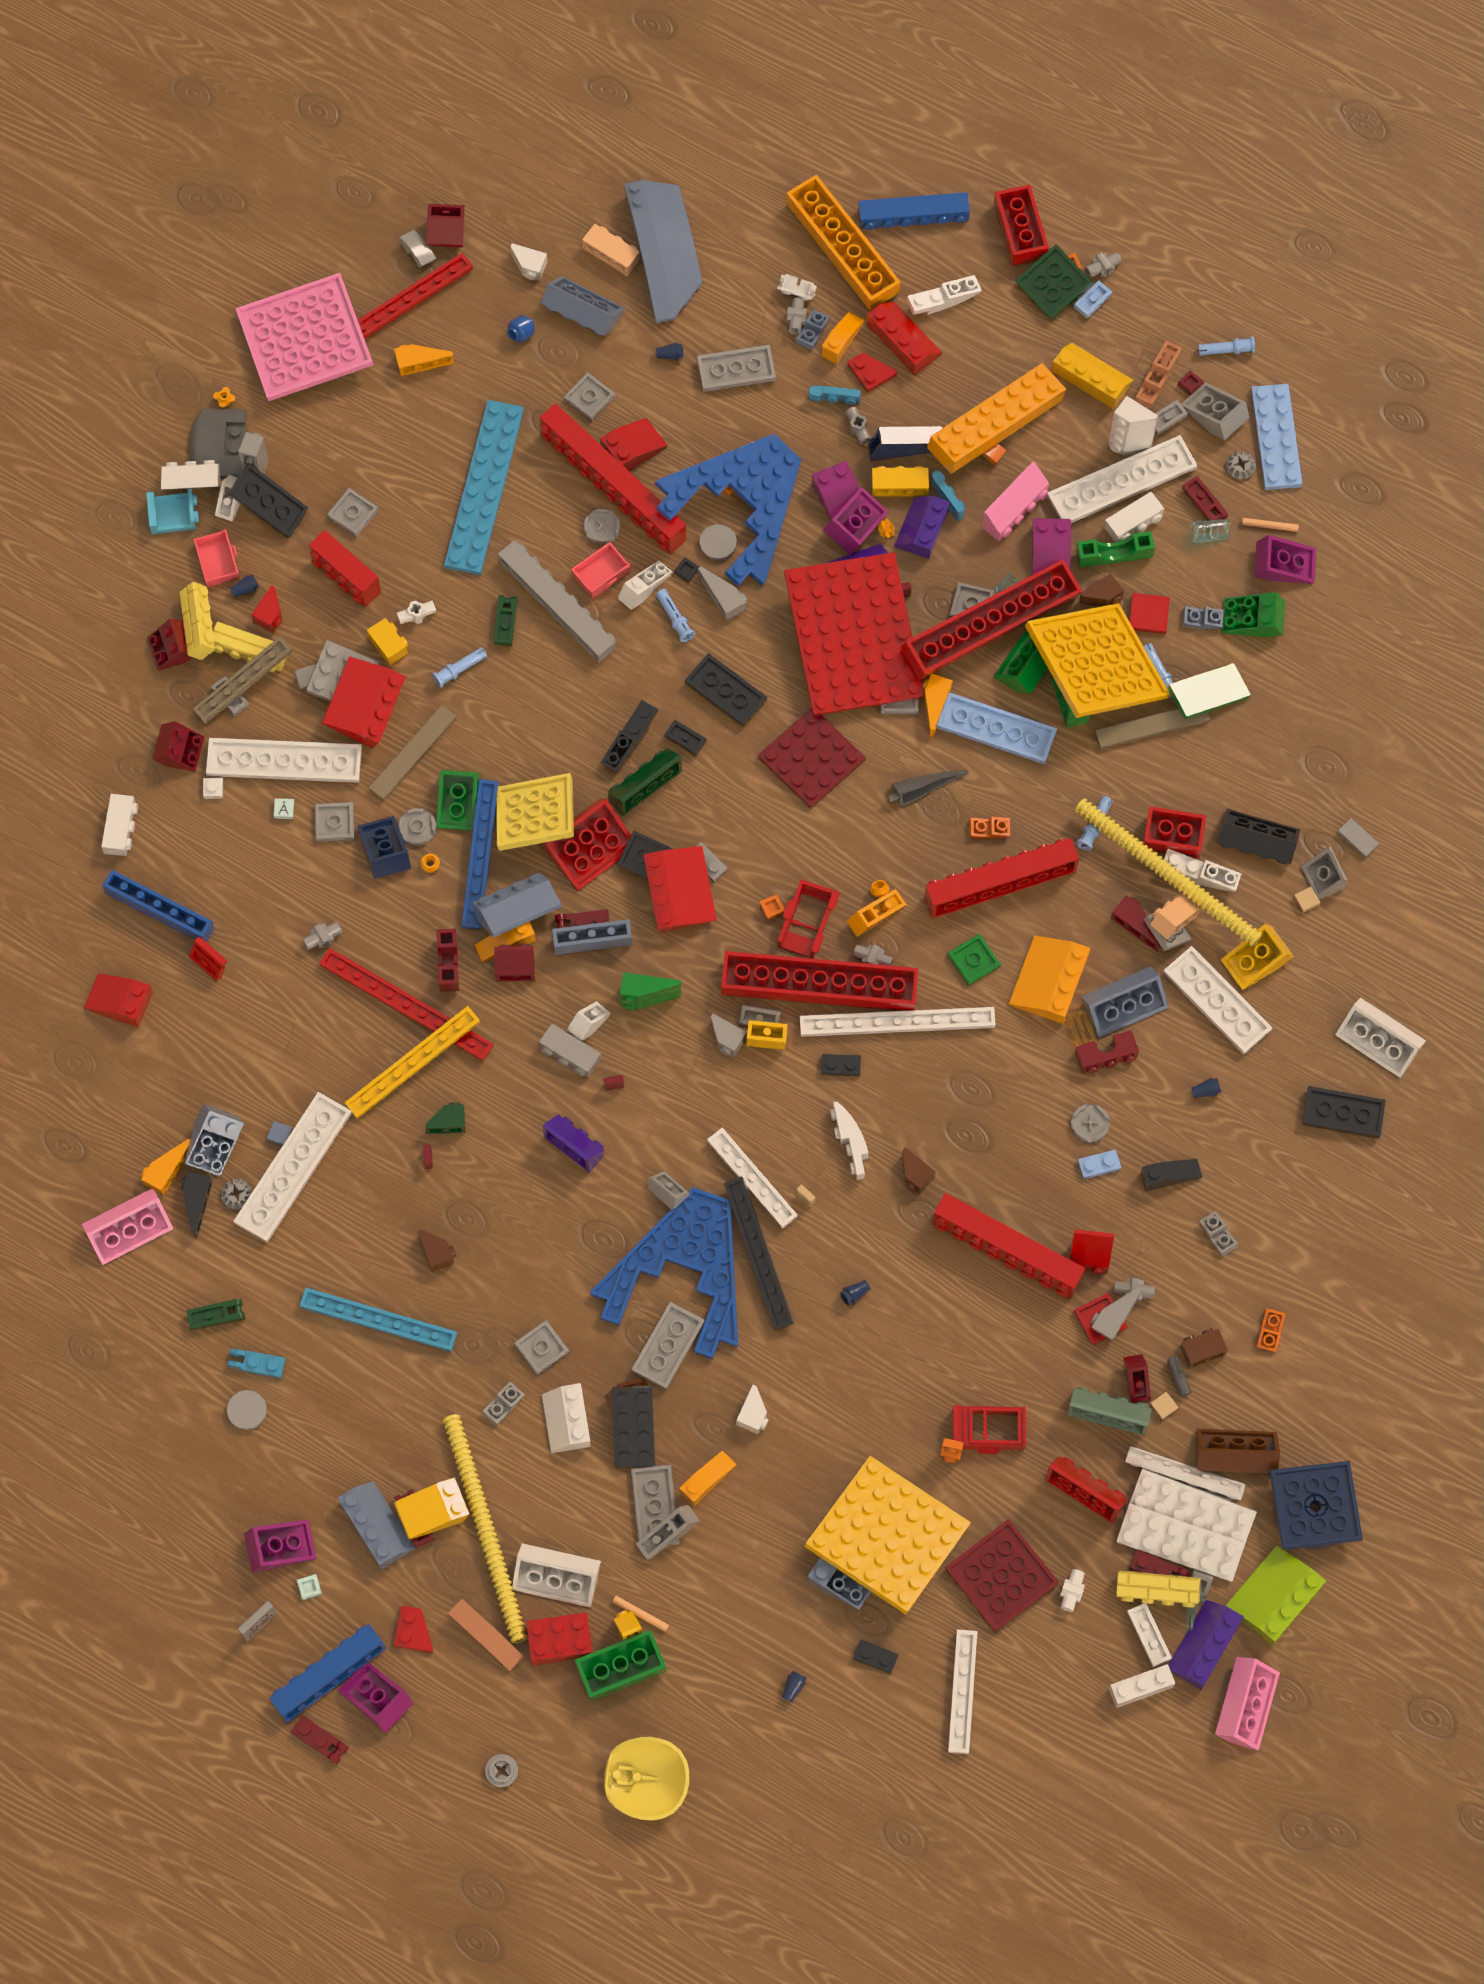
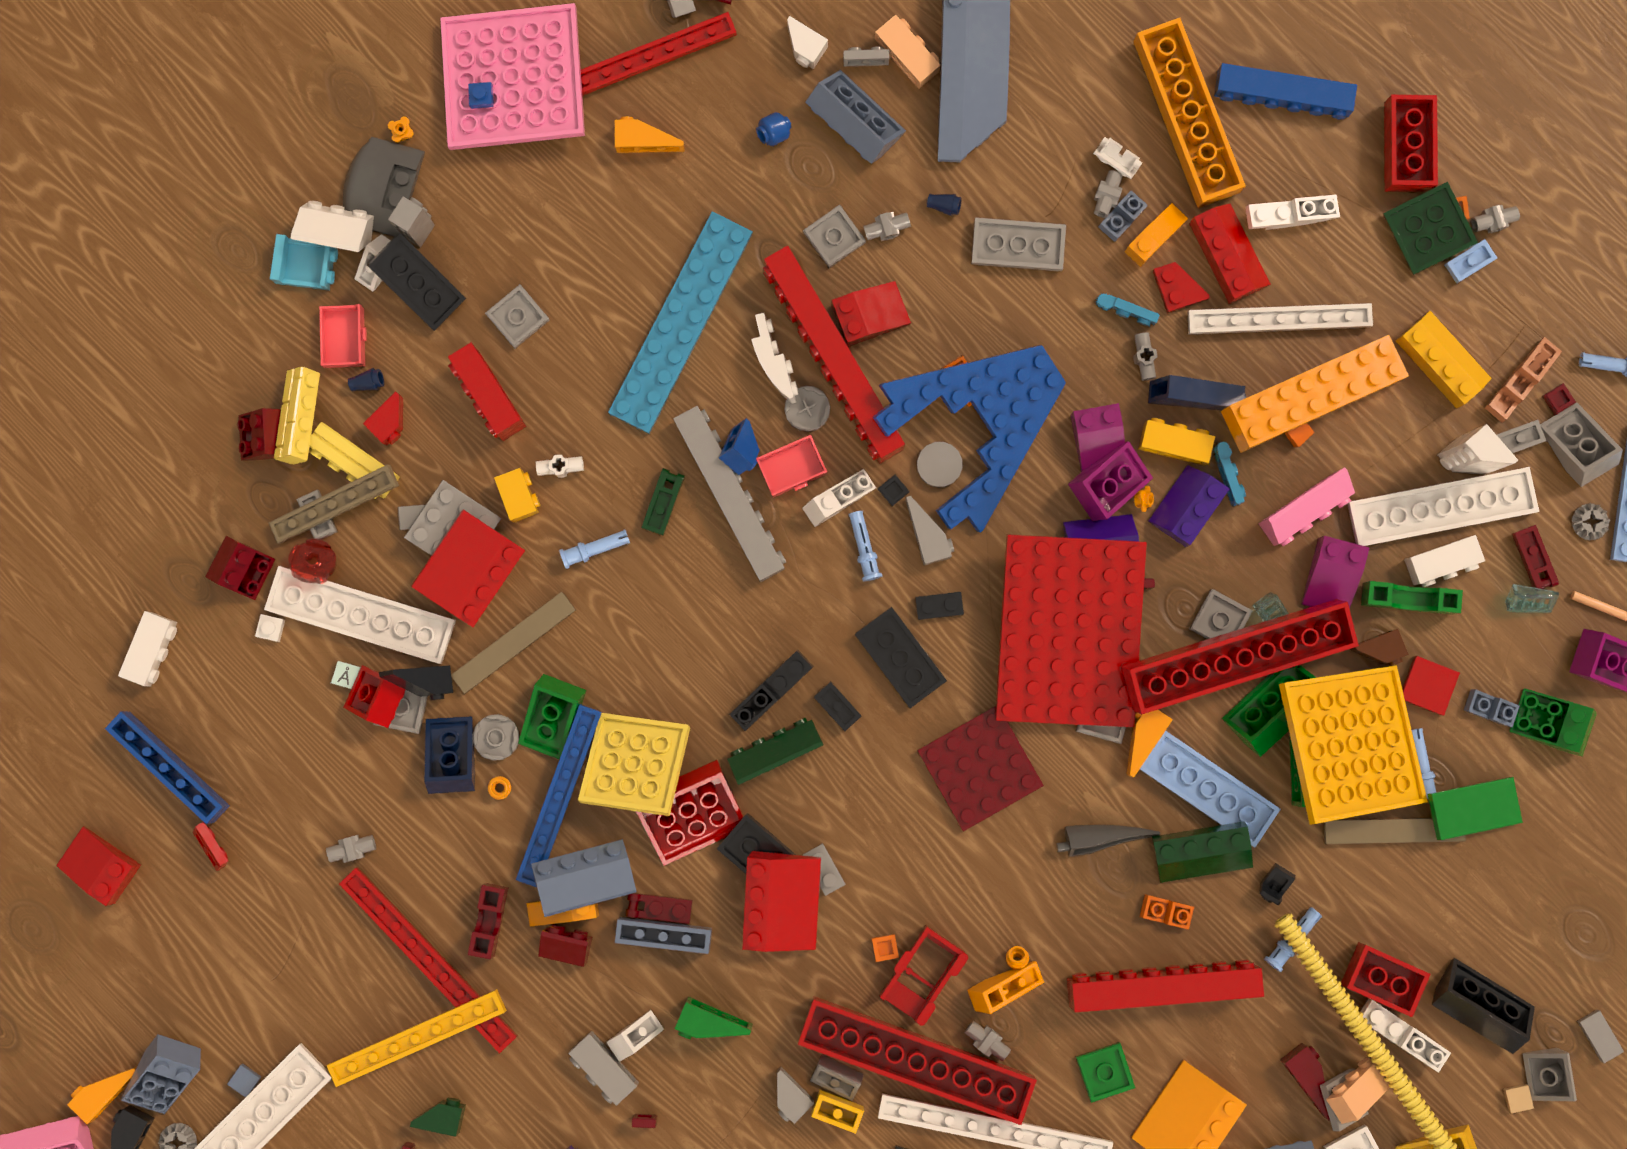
camera: 15 degrees right, 15 degrees up
(243, 733) = (317, 572): none -> clear red plate
(284, 354) = (480, 95): none -> blue plate
(313, 813) = (374, 697): none -> red slope
(347, 790) = (422, 681): none -> black slope
(557, 563) = (740, 448): none -> blue slope
(566, 496) = (775, 366): none -> white slope
(576, 262) = (874, 57): none -> light grey plate
(629, 378) = (887, 226): none -> light grey axle
(746, 646) = (939, 605): none -> black plate
(956, 374) = (1280, 318): none -> white plate
(1004, 773) = (1203, 851): none -> dark green slope
(1069, 784) = (1276, 884): none -> black bracket

